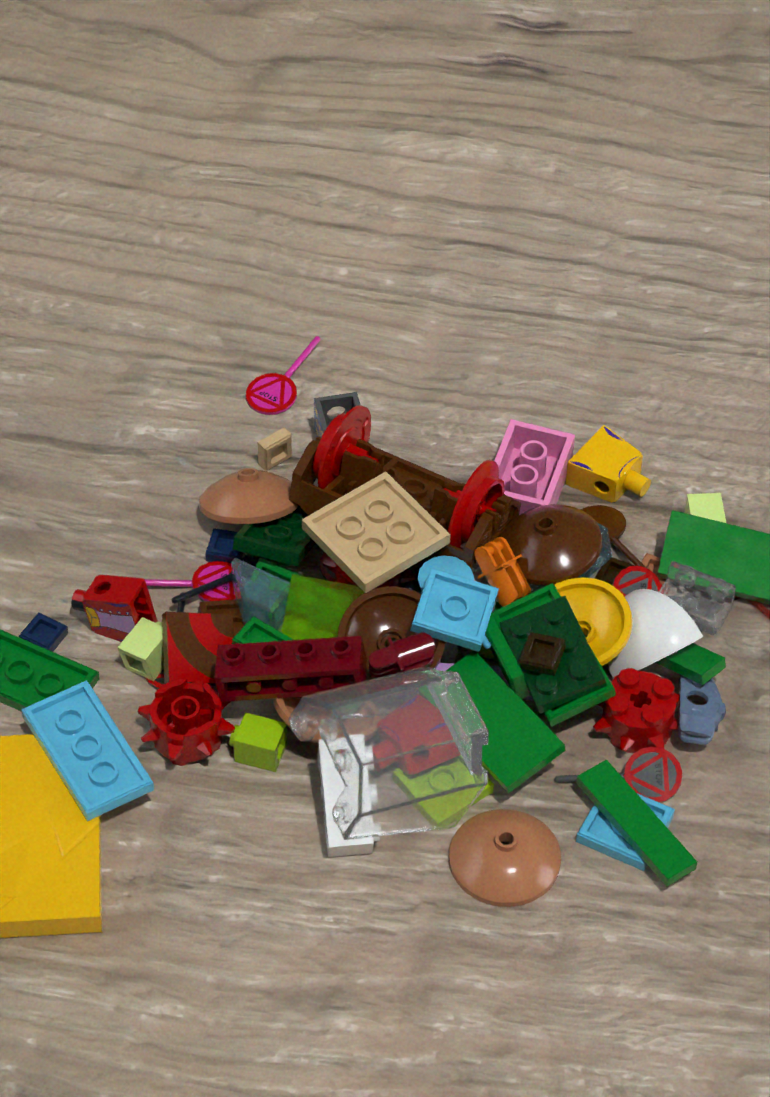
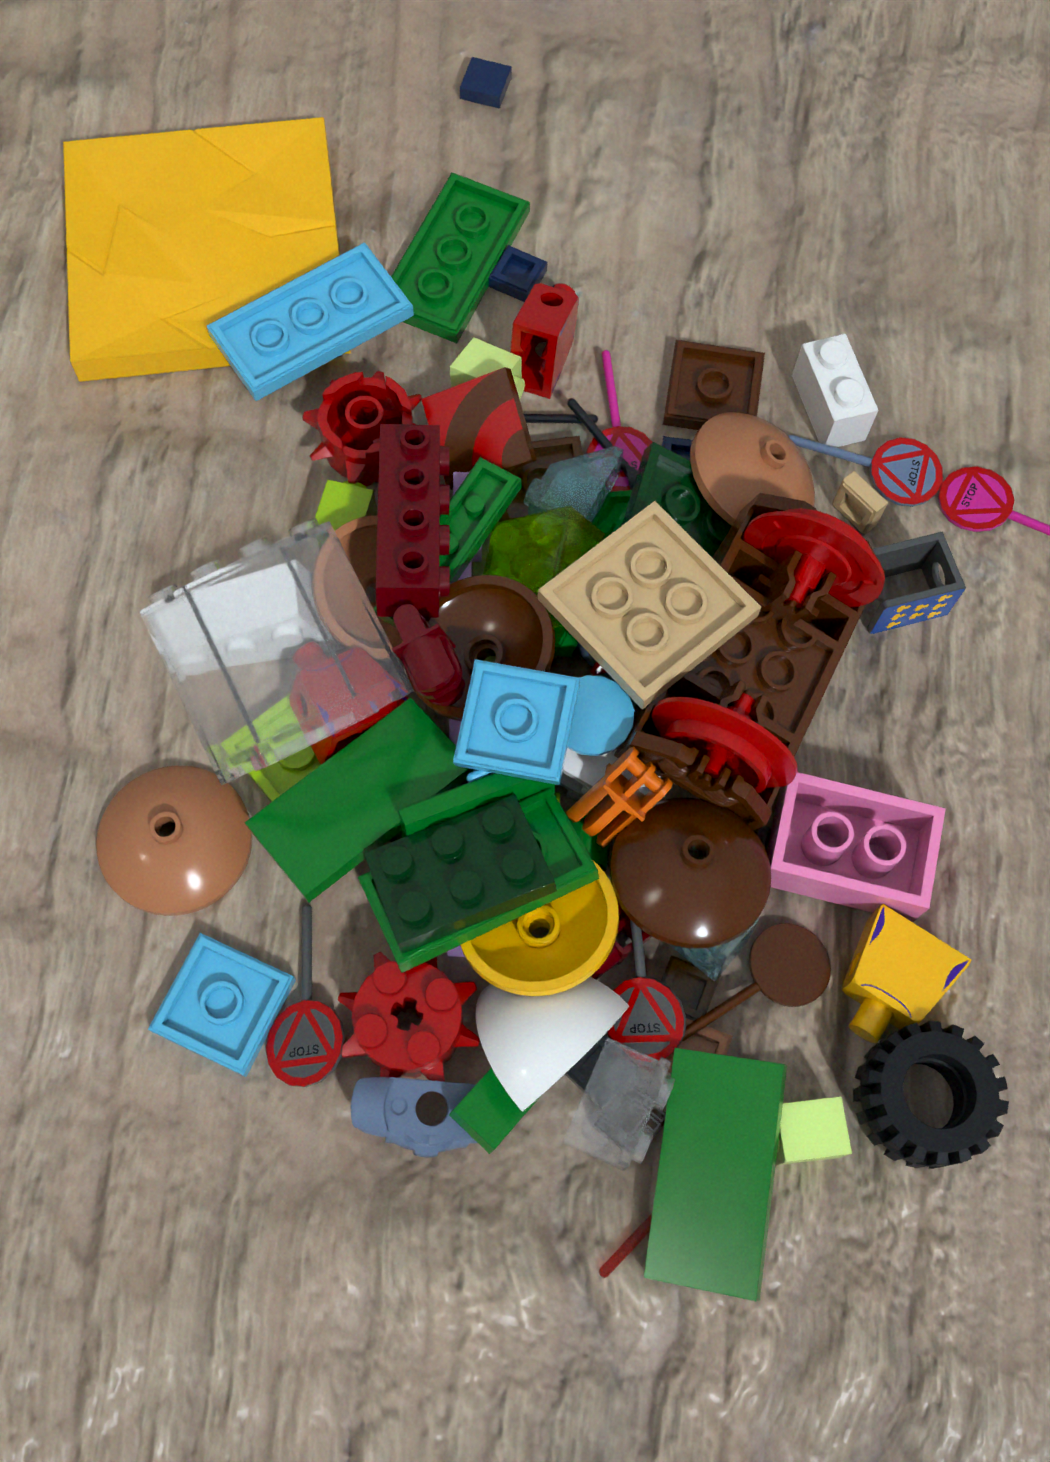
camera: 85 degrees right, 20 degrees up
(164, 525) = (711, 382): none -> reddish brown tile
(185, 451) = (834, 391): none -> white brick
(242, 428) = (900, 469): none -> piece
(542, 653) = (437, 849): dark brown tile -> none
(636, 823) = (204, 1015): green tile -> none
(683, 457) = (972, 1086): none -> black tyre

